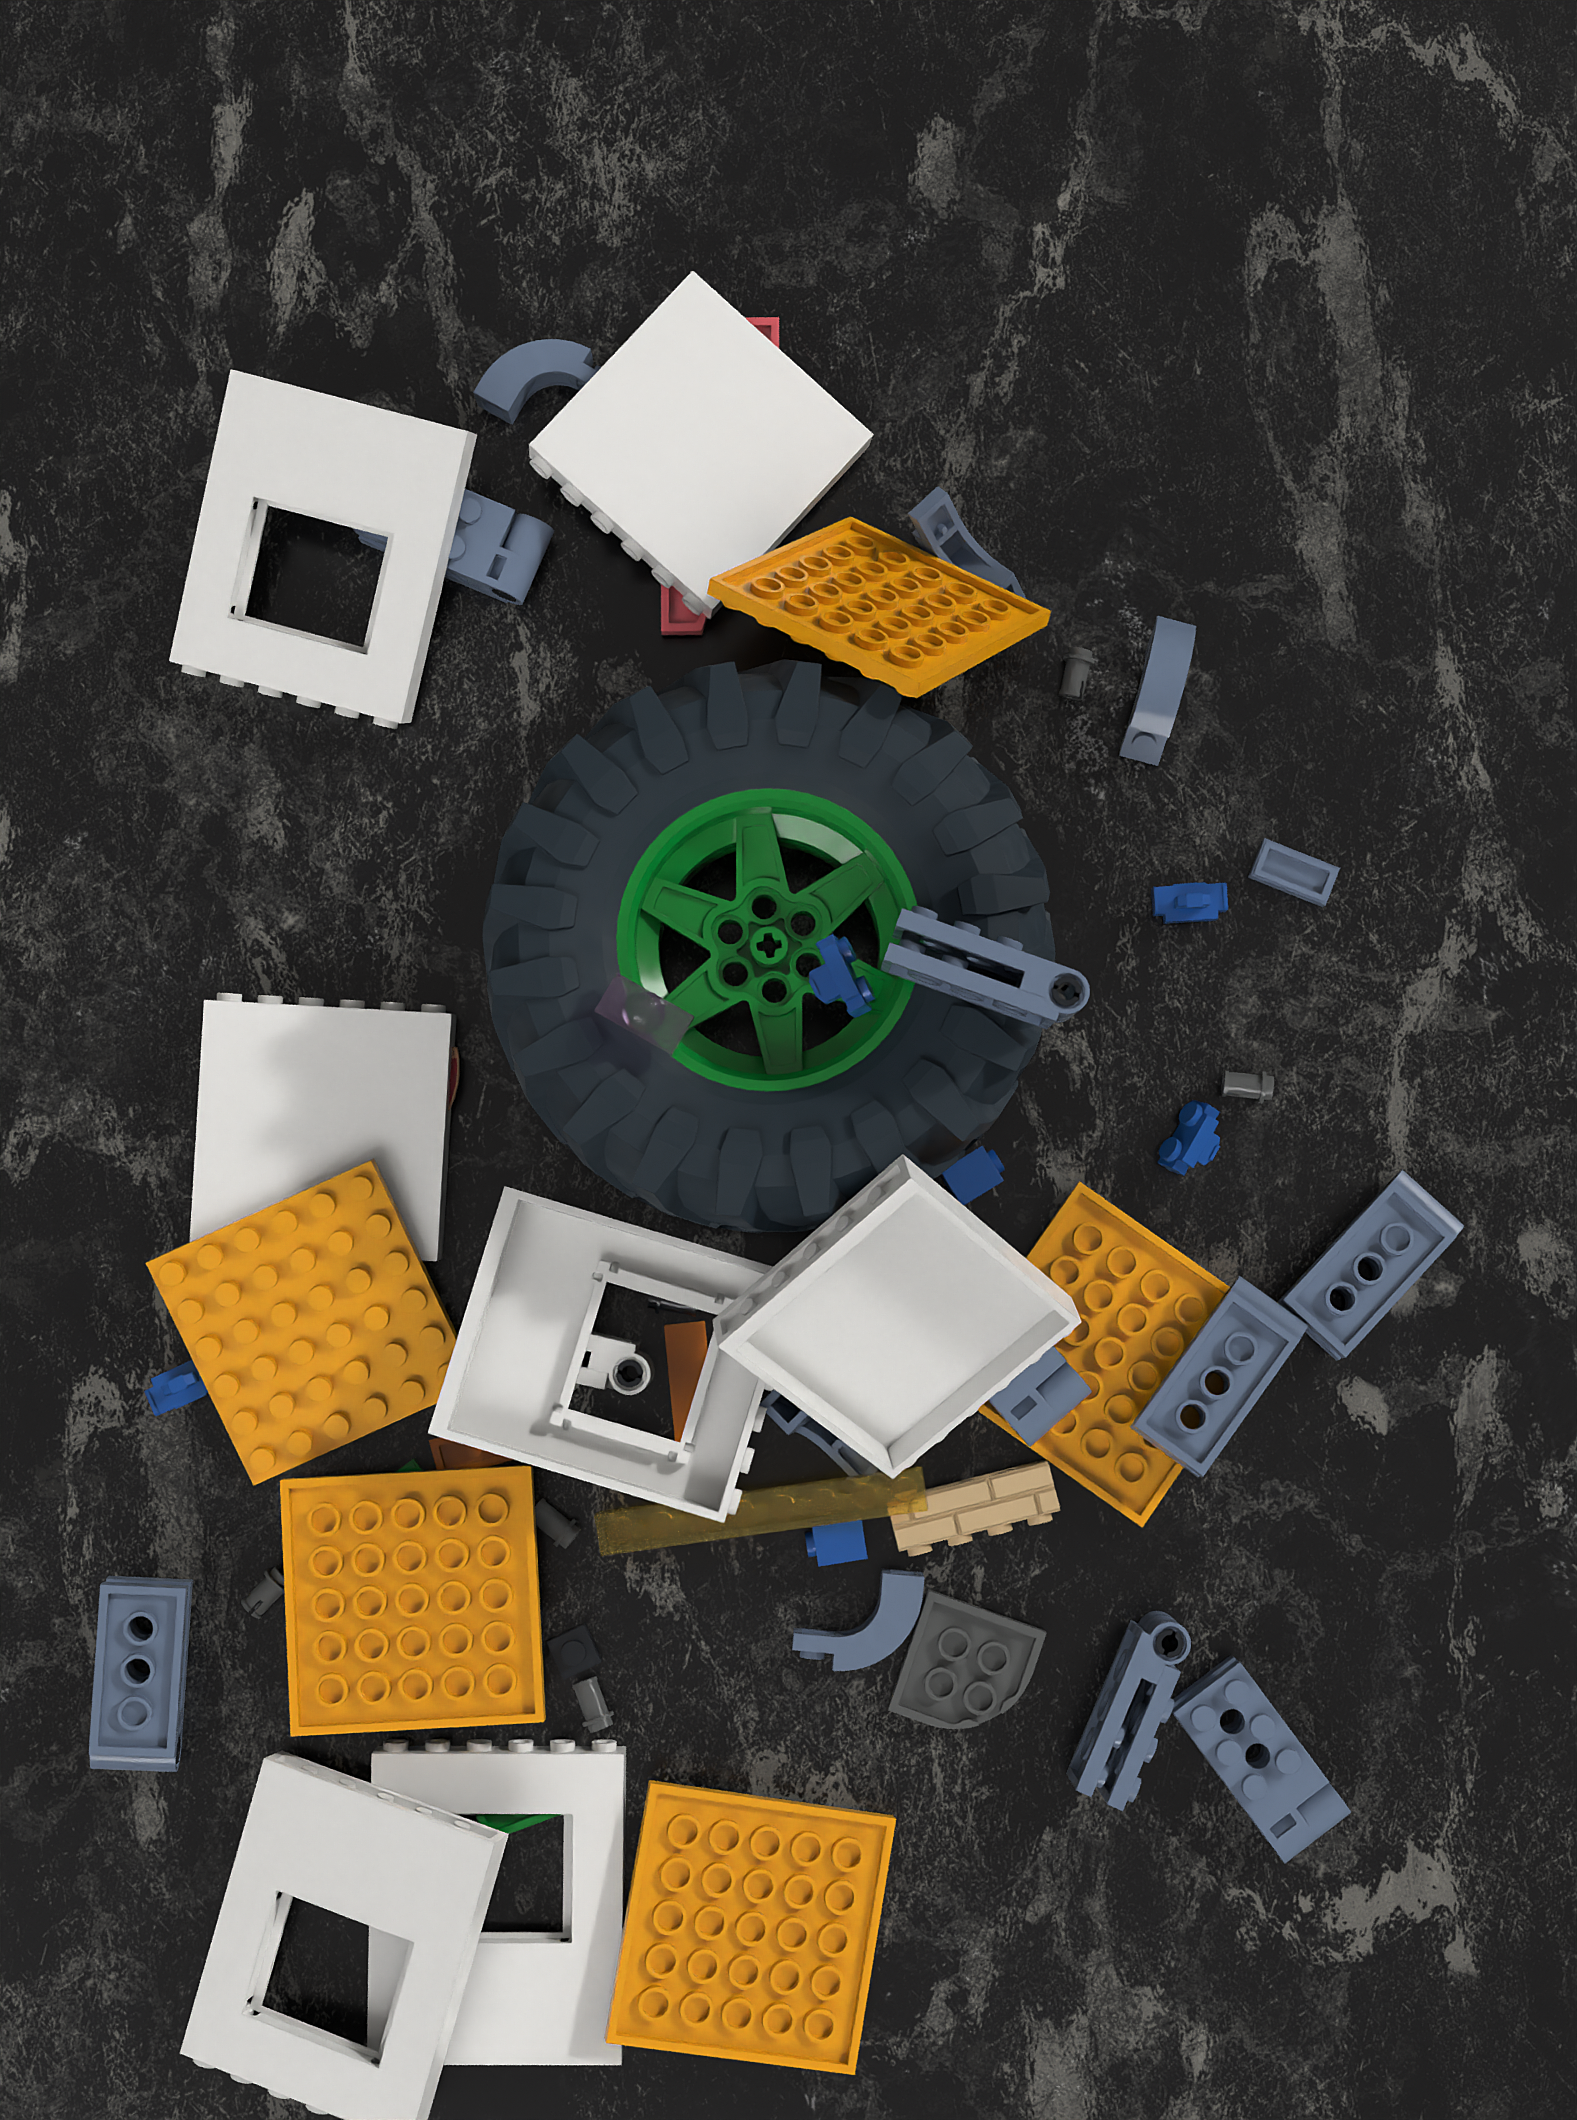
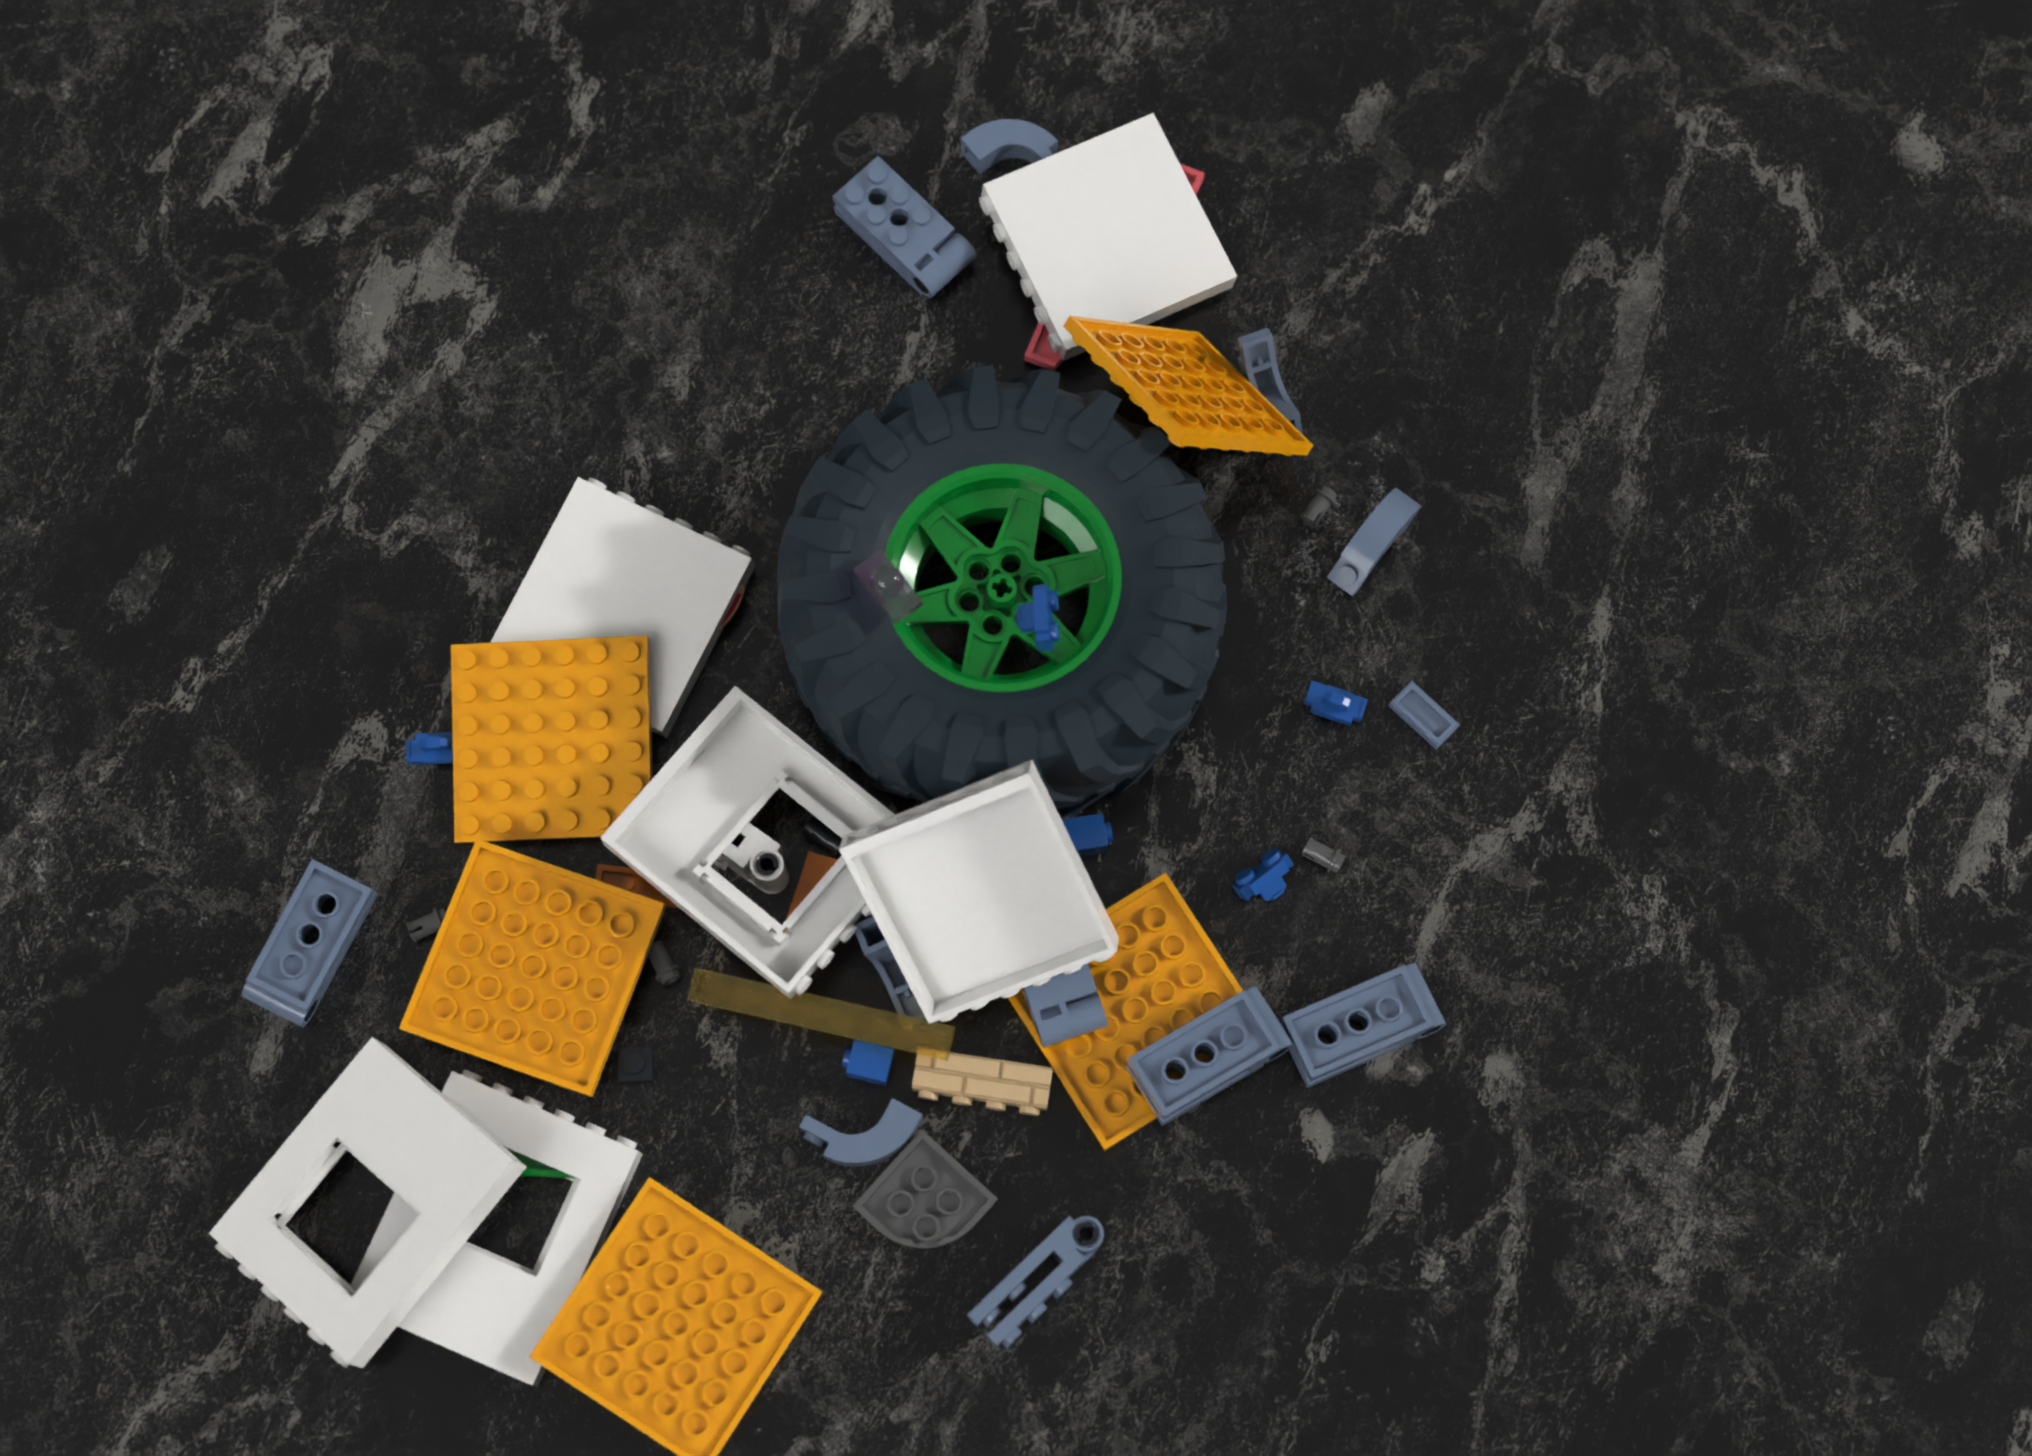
camera: 25 degrees right, 10 degrees down
(345, 468) = (840, 146): white panel -> none
(593, 1705) = (631, 1109): dark grey pin -> none
(1037, 979) = (1144, 648): sand blue hinge -> none
(1280, 1786) = (1126, 1398): sand blue hinge -> none

